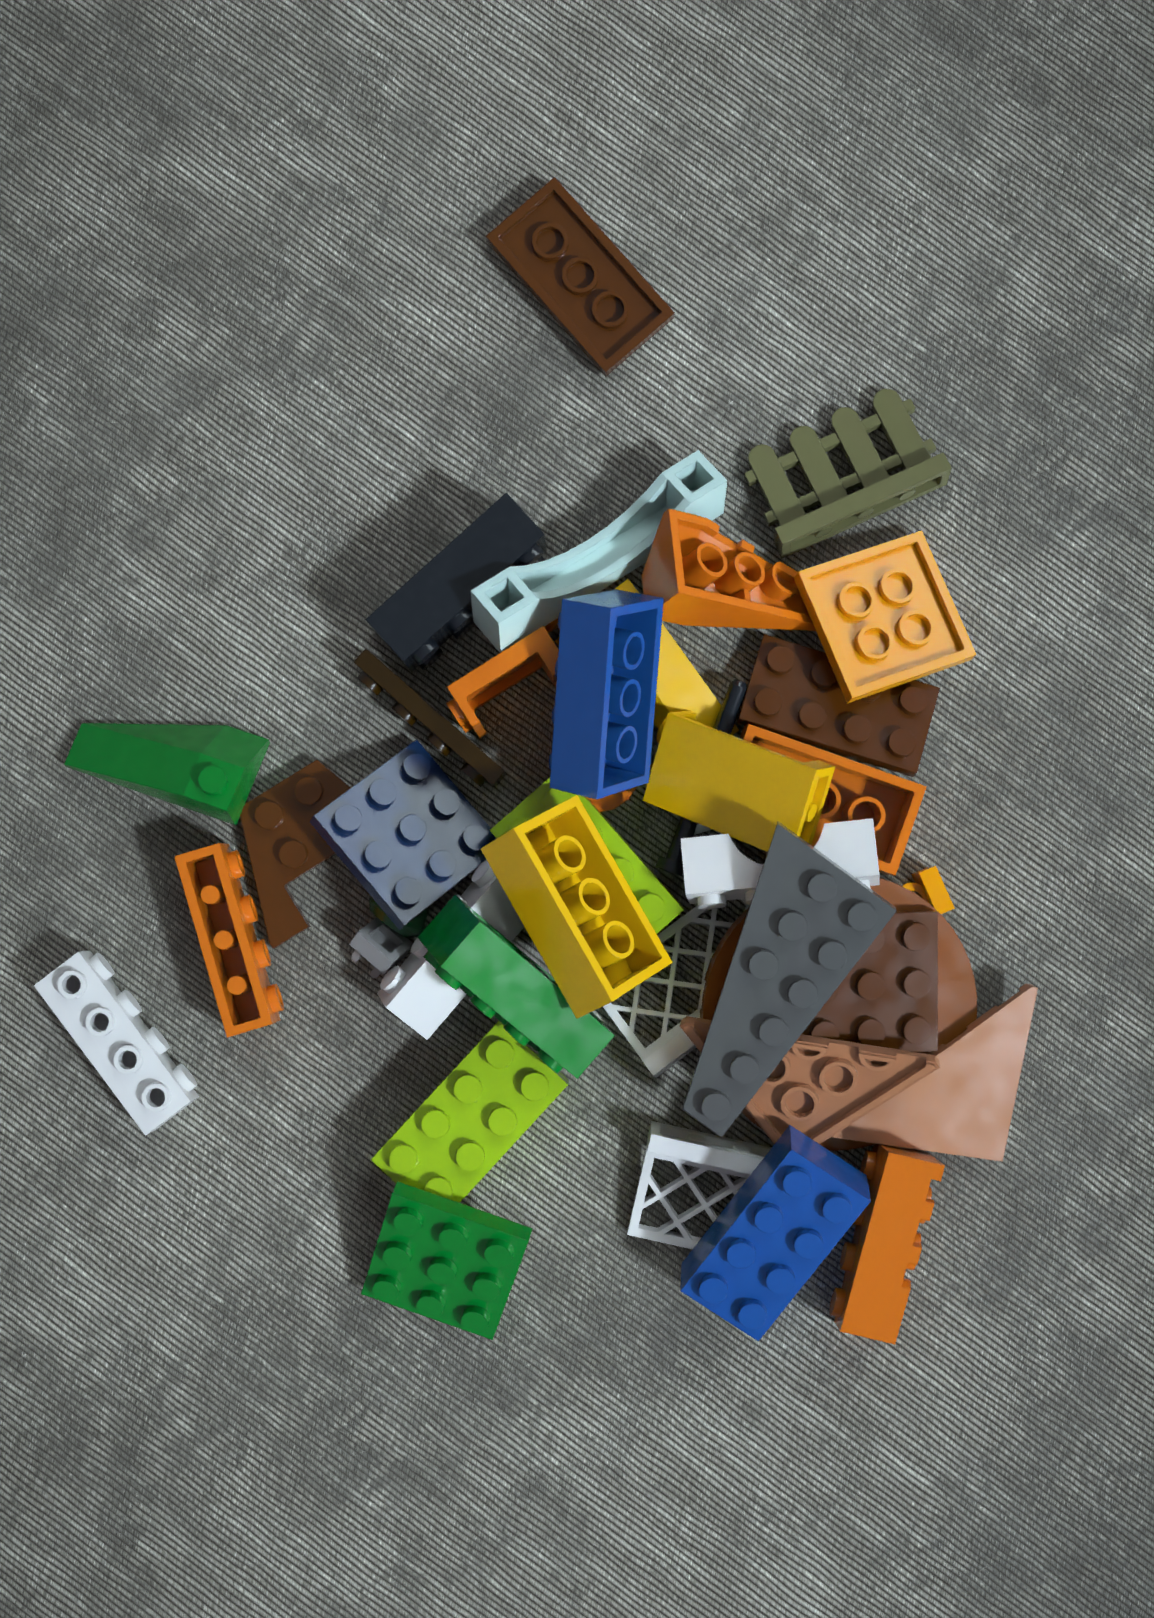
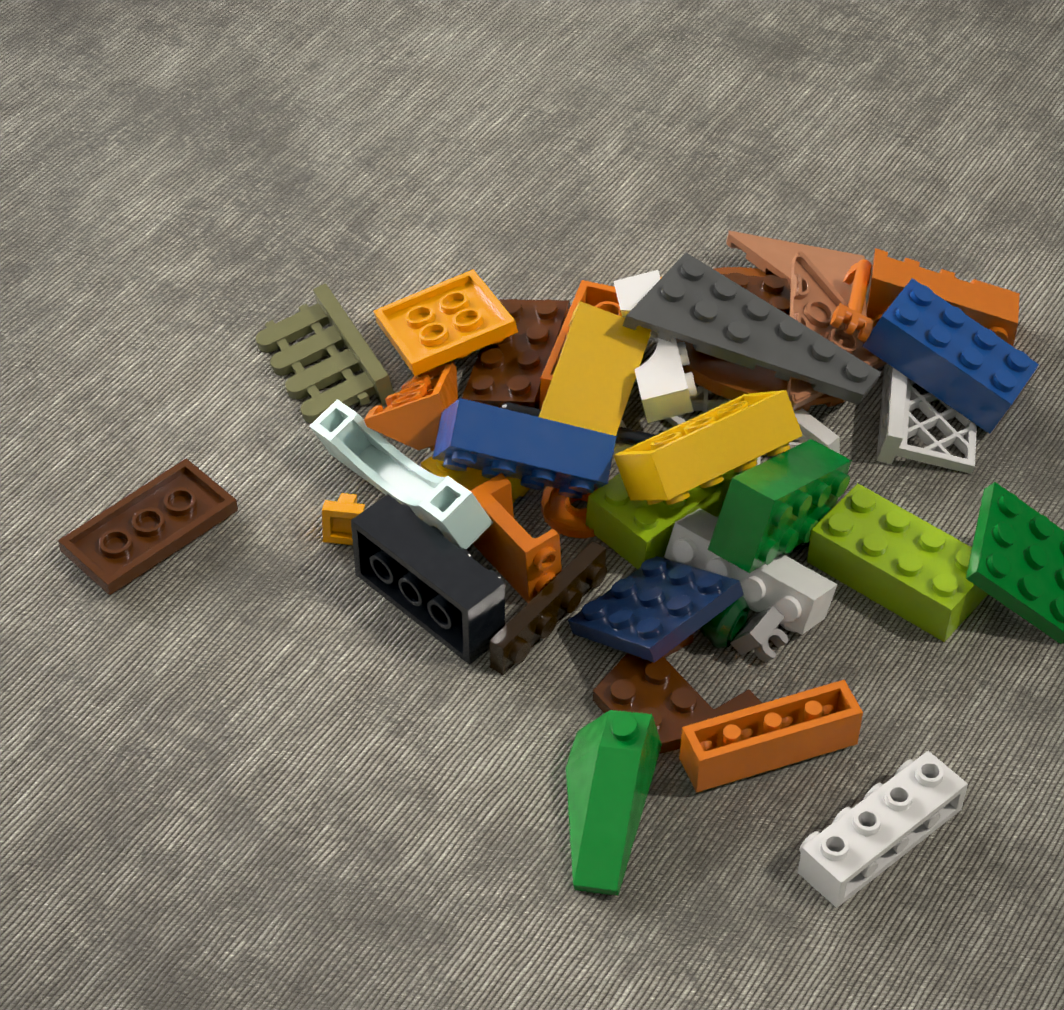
camera: 100 degrees left, 40 degrees down
(572, 495) = (338, 517): none -> light orange tile
(821, 1116) = (852, 315): none -> orange hinge

